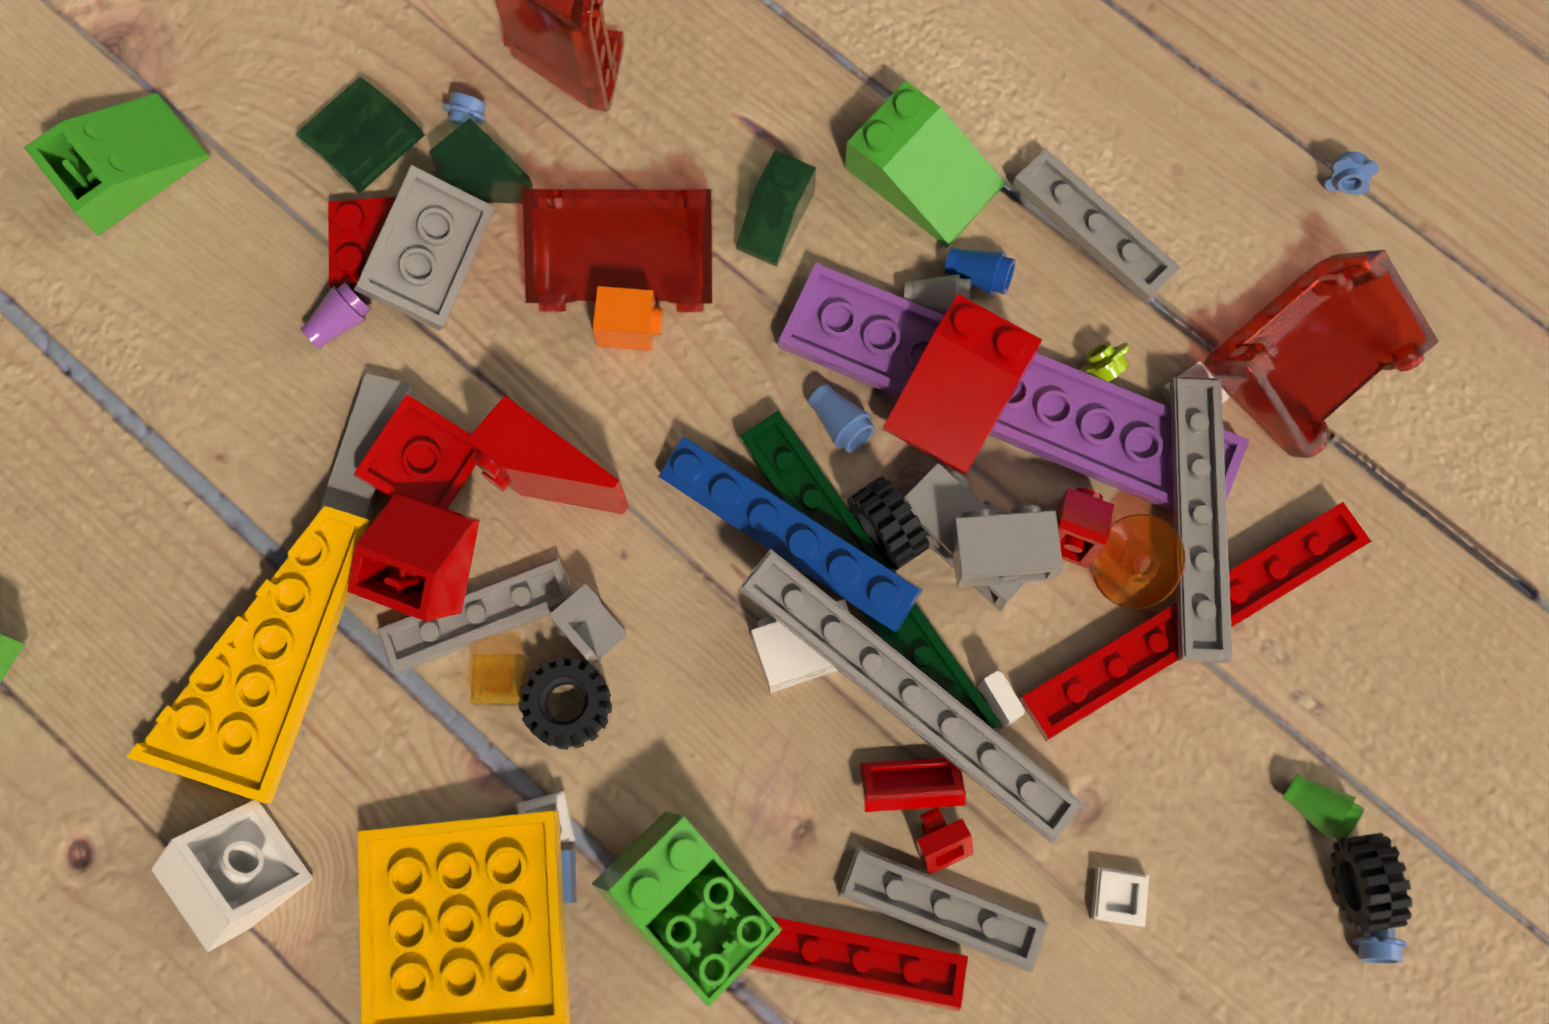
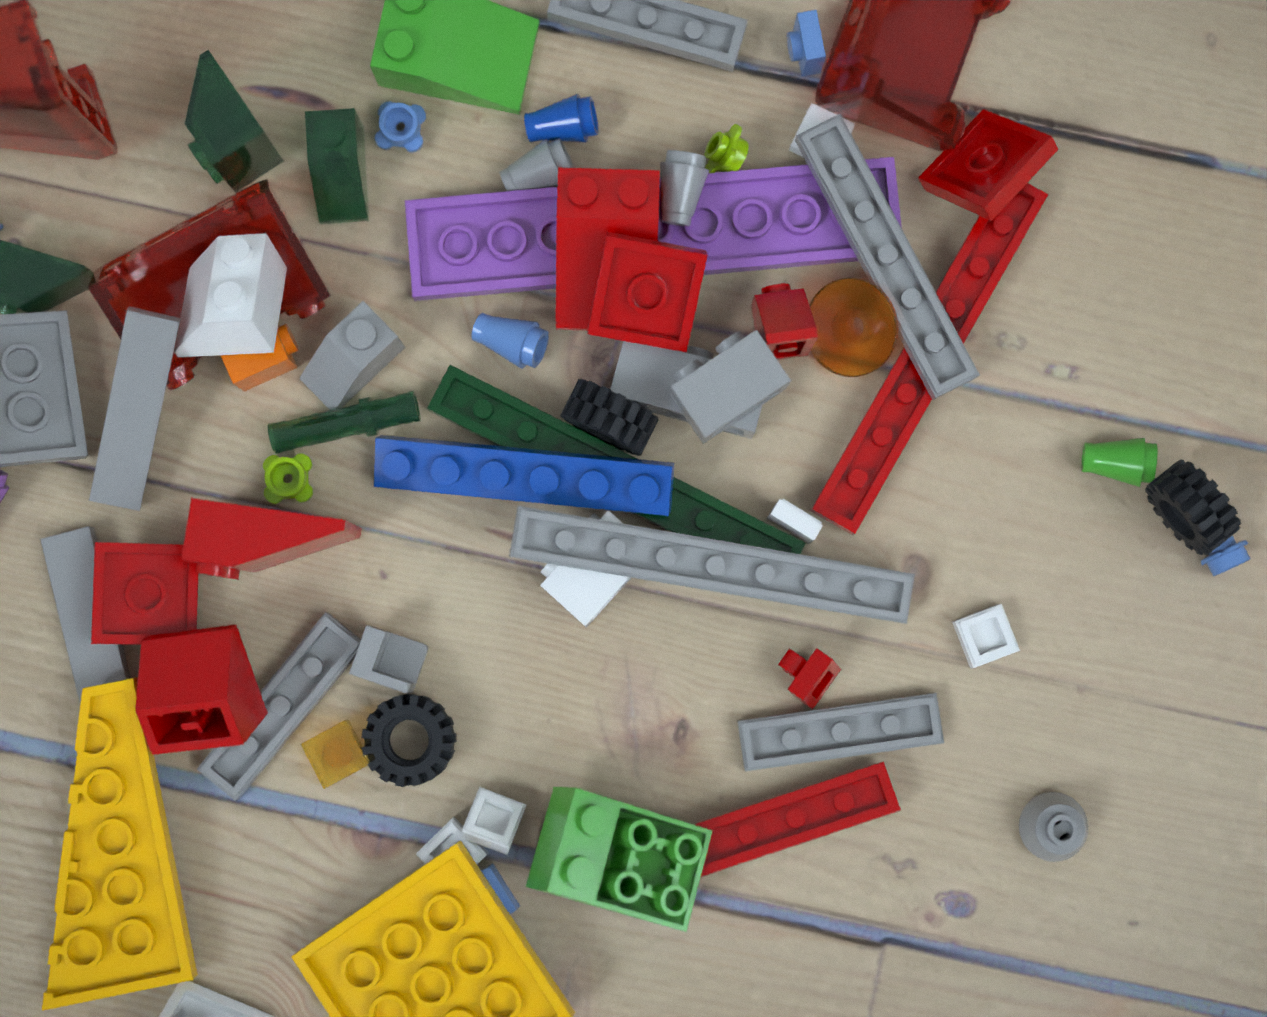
camera: 30 degrees left, 10 degrees up
(501, 307) = (134, 408): none -> light grey tile
(590, 419) = (275, 470): none -> lime plate
(596, 813) = (493, 821): none -> white tile
(633, 262) = (232, 298): none -> white slope
(654, 409) = (344, 422): none -> clear green pin
(700, 362) = (350, 357): none -> light grey slope
(702, 133) = (225, 131): none -> clear green slope
(844, 194) = (394, 113): none -> medium blue plate
(911, 785) = (756, 641): red tile -> none
(977, 433) = (646, 292): none -> red plate
(1053, 366) = (681, 186): none -> light grey cone
(1221, 311) = (806, 43): none -> medium blue plate
(1330, 487) = (988, 164): none -> red plate

